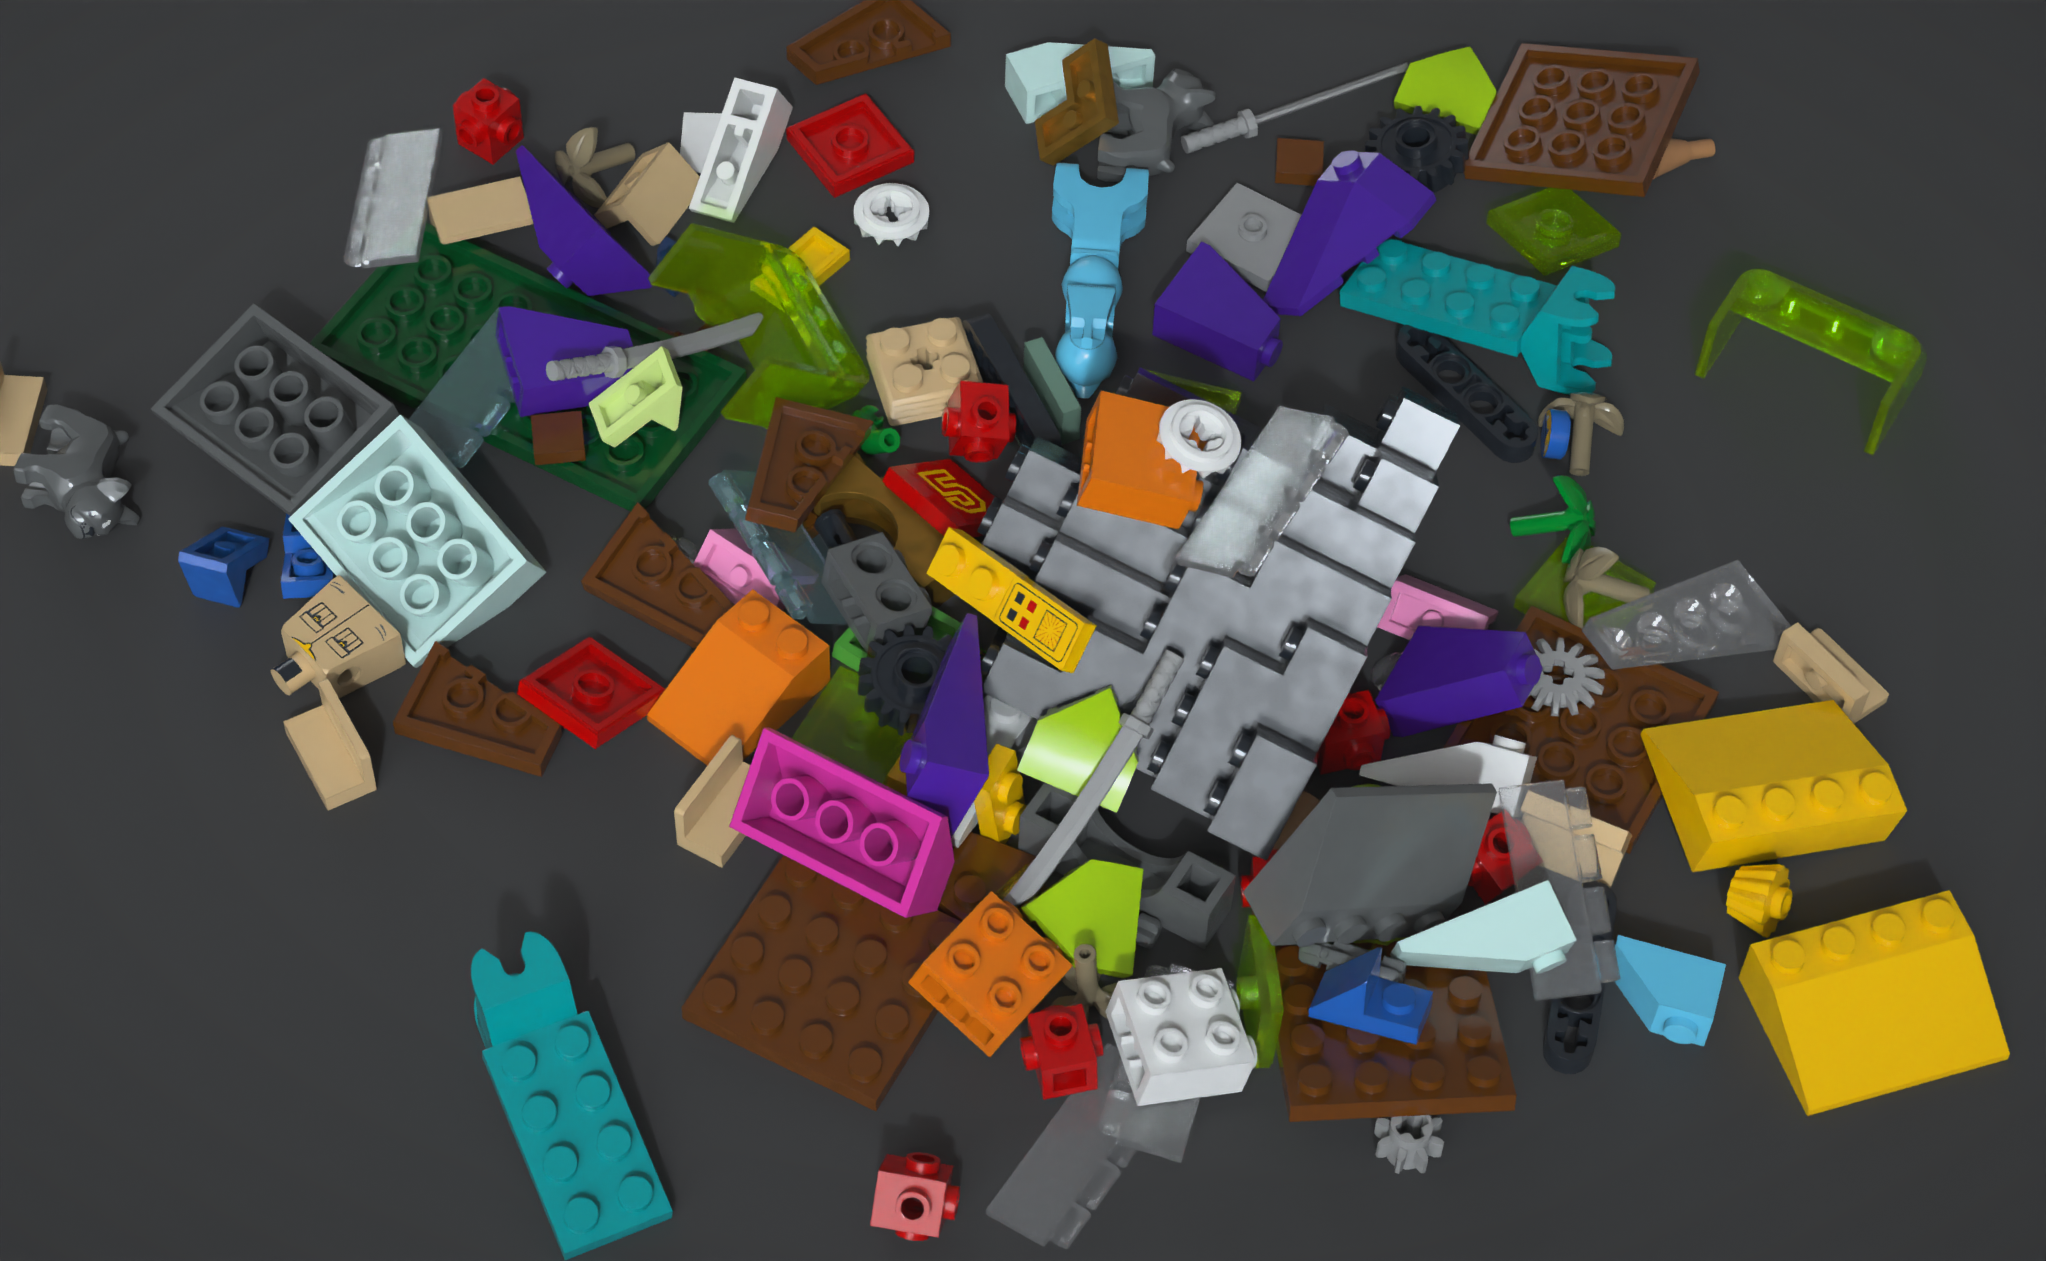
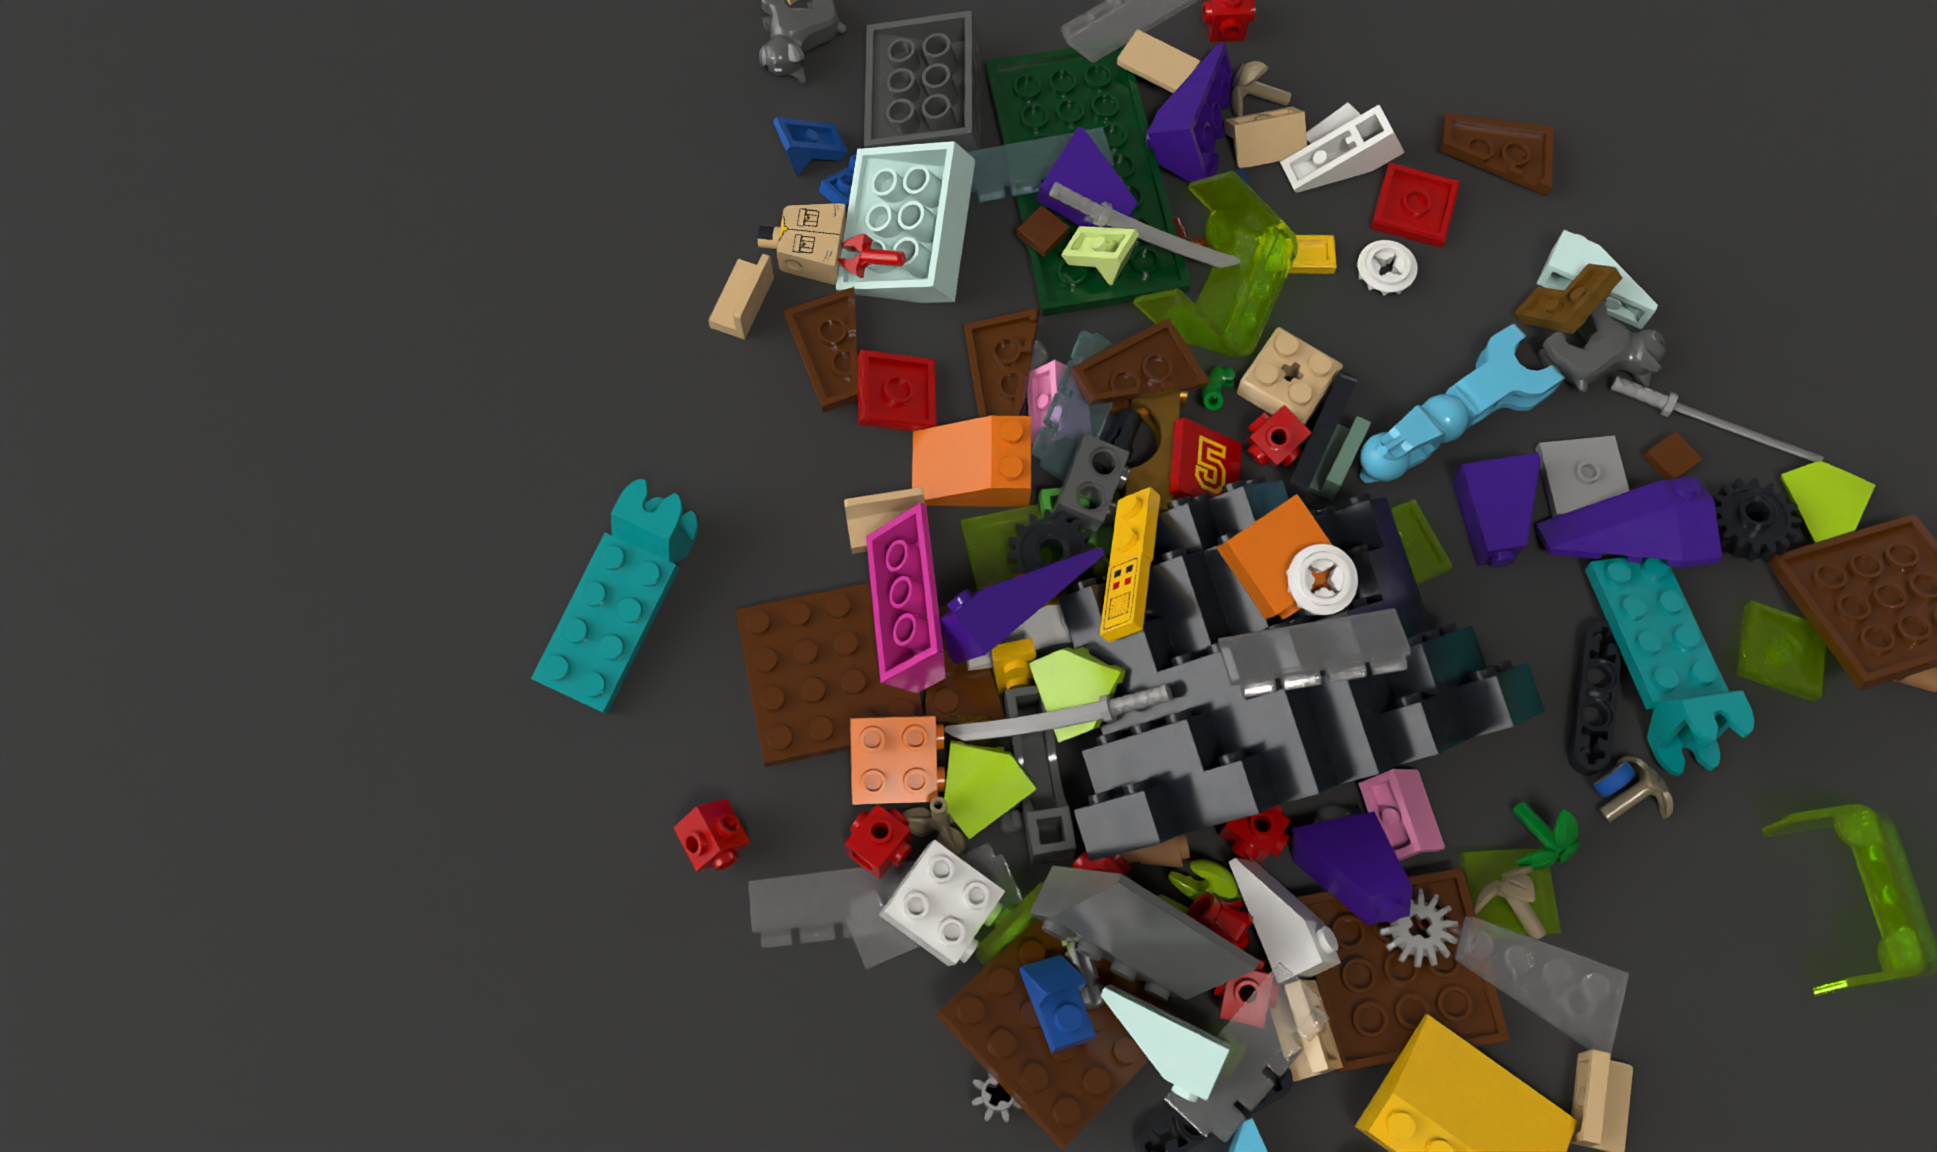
camera: 50 degrees right, 15 degrees up
(422, 598) = (868, 256): none -> red bar

